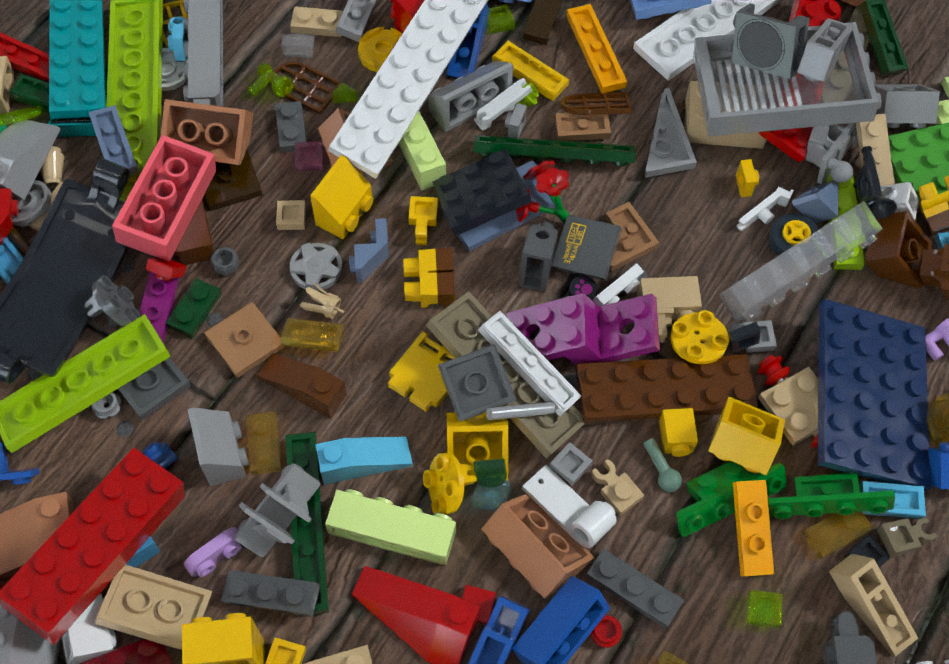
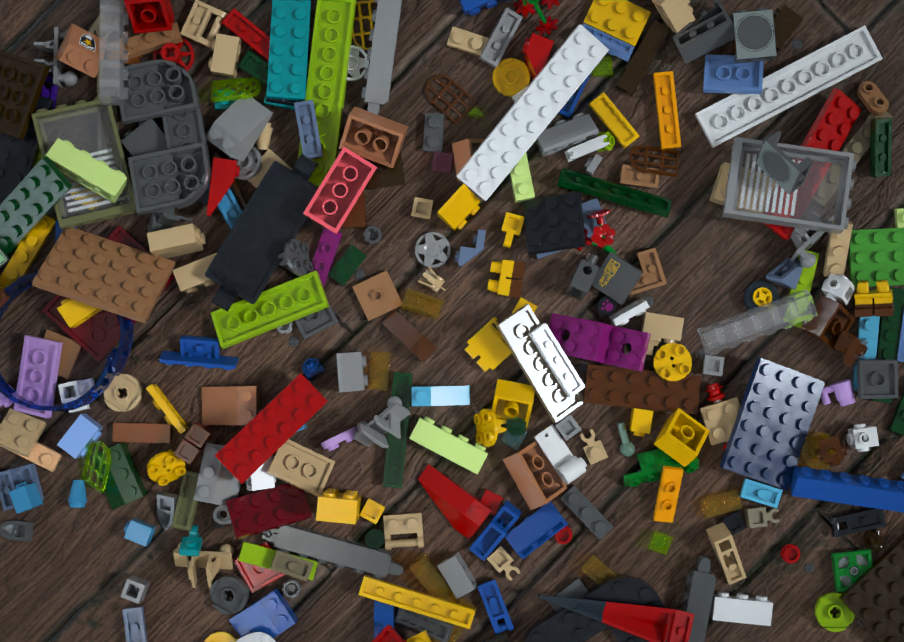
camera: 20 degrees right, 25 degrees up
(164, 269) = (332, 239): red plate -> none
(177, 39) = (362, 47): medium azure plate -> none
(270, 593) = (369, 471): dark grey plate -> none
(281, 85) = (431, 98): clear neon green piece -> none
(297, 45) = (449, 62): clear piece -> none
(476, 383) = (519, 372): dark grey tile -> none
(520, 410) = (543, 394): light grey piece -> none
(670, 145) = (697, 204): light grey wing -> none
(744, 337) = (701, 370): black tile -> none
(747, 178) = (743, 244): yellow plate -> none
(762, 211) = (745, 272): white piece -> none
(824, 49) = (822, 176): light grey slope -> none
(830, 494) = (720, 482): green bracket -> none
(874, 198) = (822, 277): black piece -> none
(908, 104) = (876, 205): light grey slope -> none

